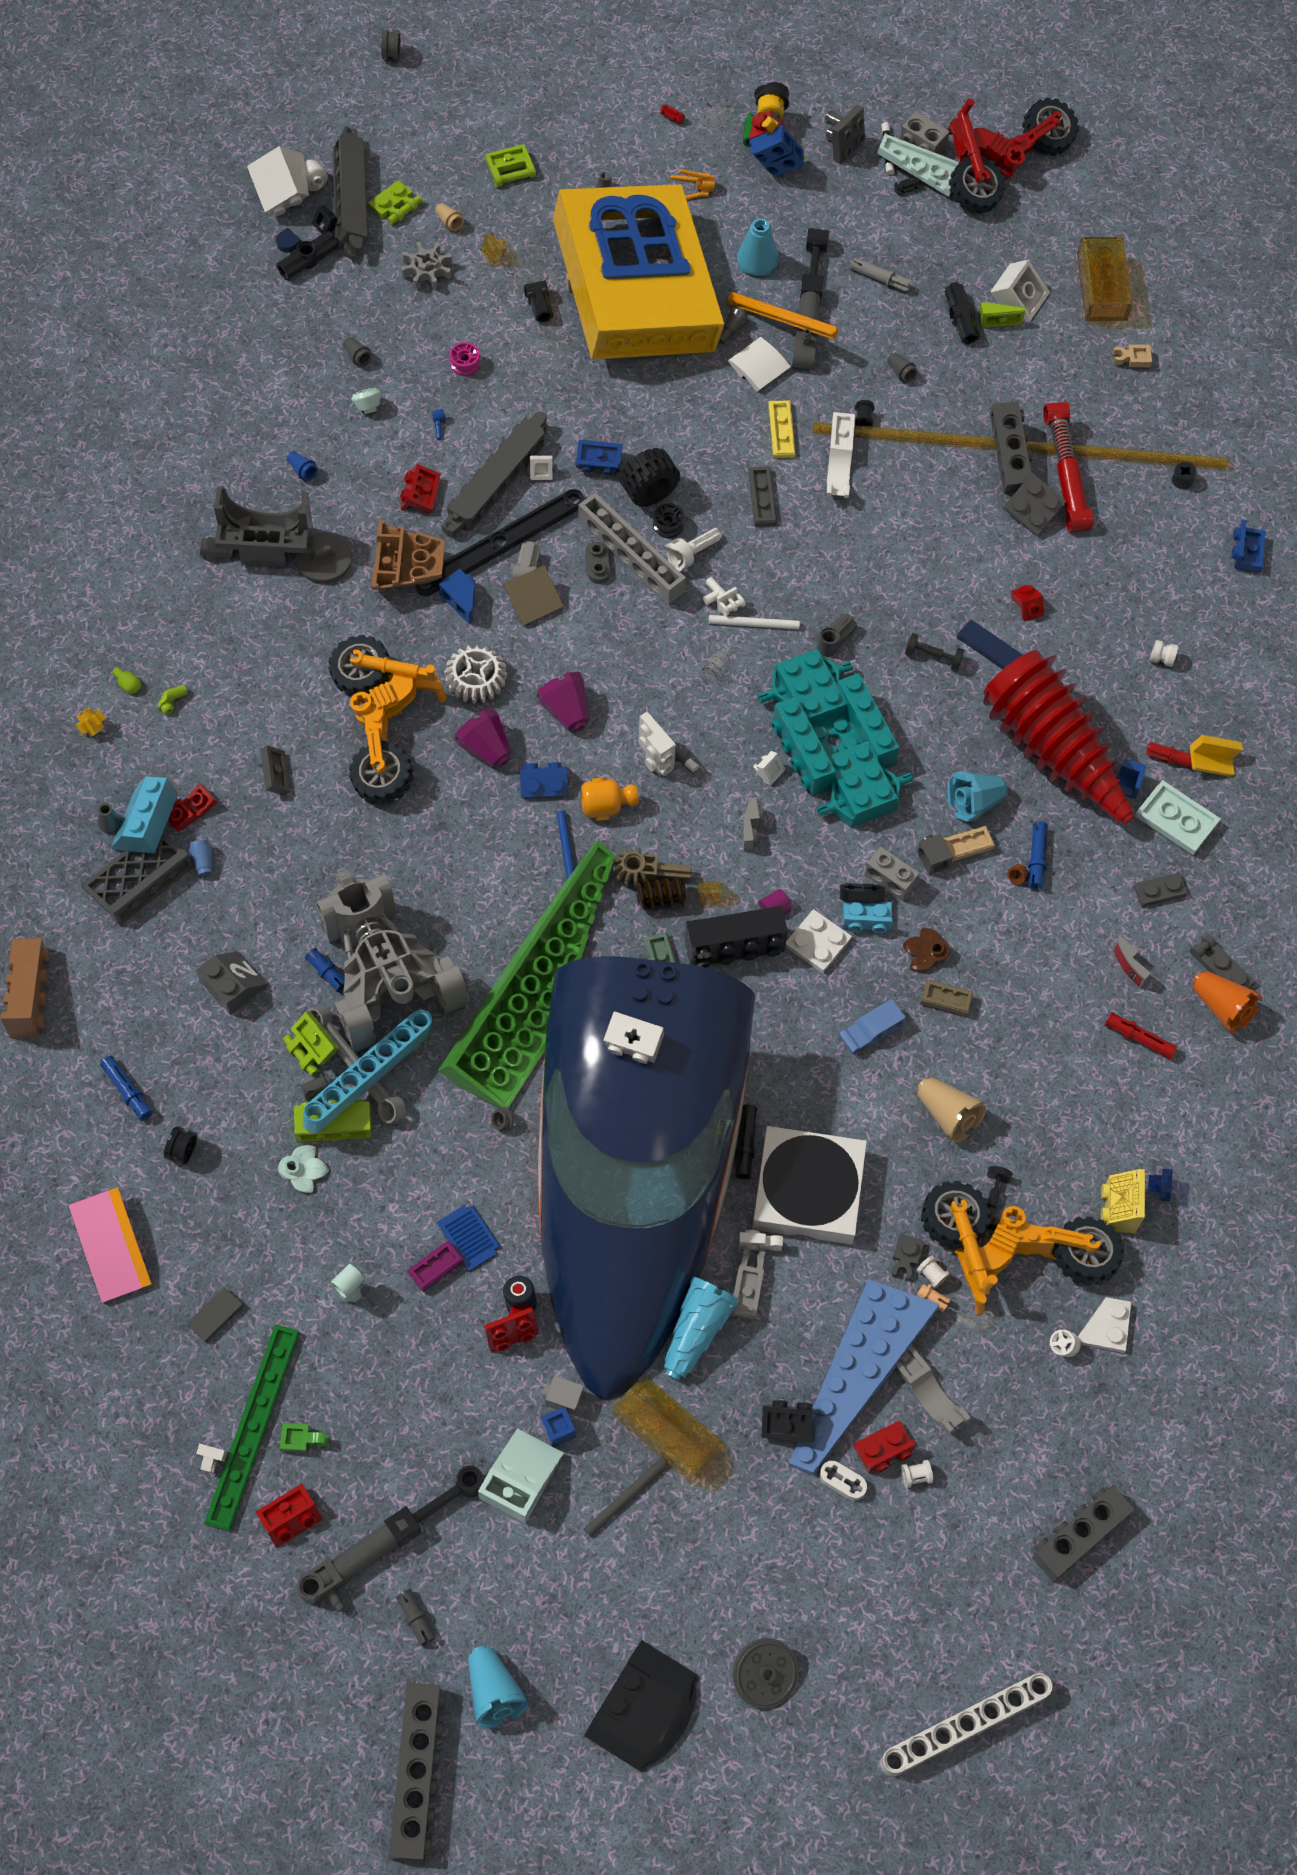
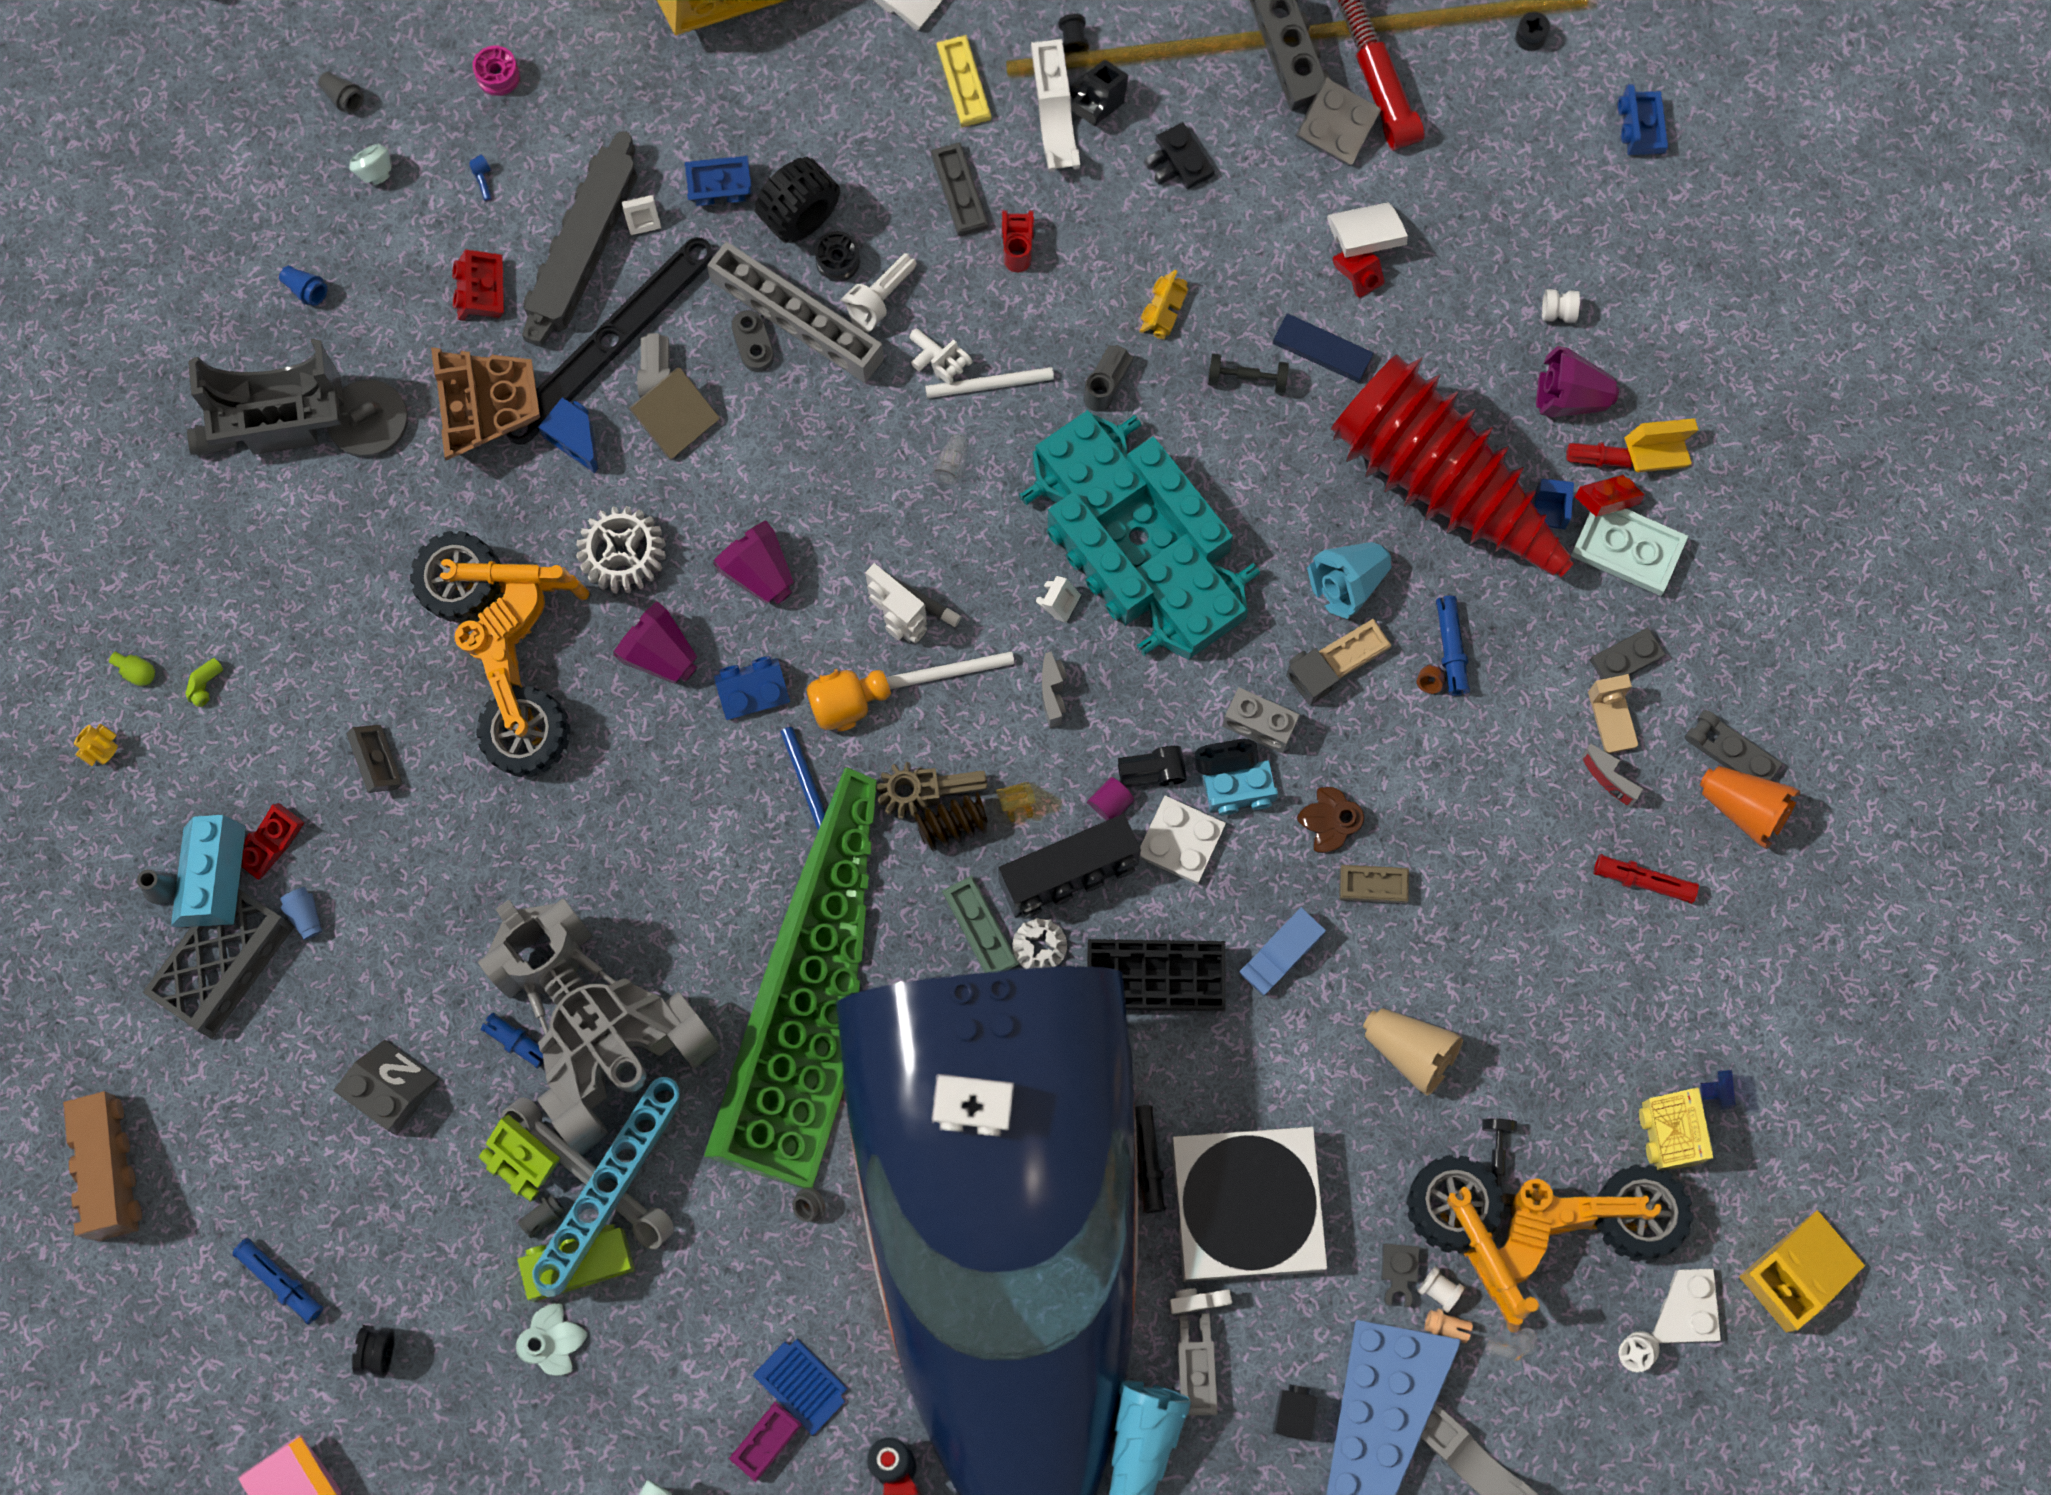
camera: 10 degrees left, 10 degrees up
(683, 799) = (950, 670): none -> white bar
(790, 1023) = (1165, 972): none -> black piece
(794, 535) = (1017, 236): none -> red piece
(810, 1330) = (1295, 1413): none -> black brick
(815, 890) = (1158, 767): none -> black piece
(873, 452) = (1099, 92): none -> black brick
(891, 590) = (1156, 314): none -> yellow hinge
(922, 506) = (1184, 156): none -> black hinge
(1039, 577) = (1367, 229): none -> white slope
(1141, 921) = (1612, 713): none -> tan bracket
(1162, 705) = (1573, 385): none -> magenta cone
(1170, 780) = (1609, 495): none -> red plate
(1193, 1317) = (1802, 1272): none -> yellow slope

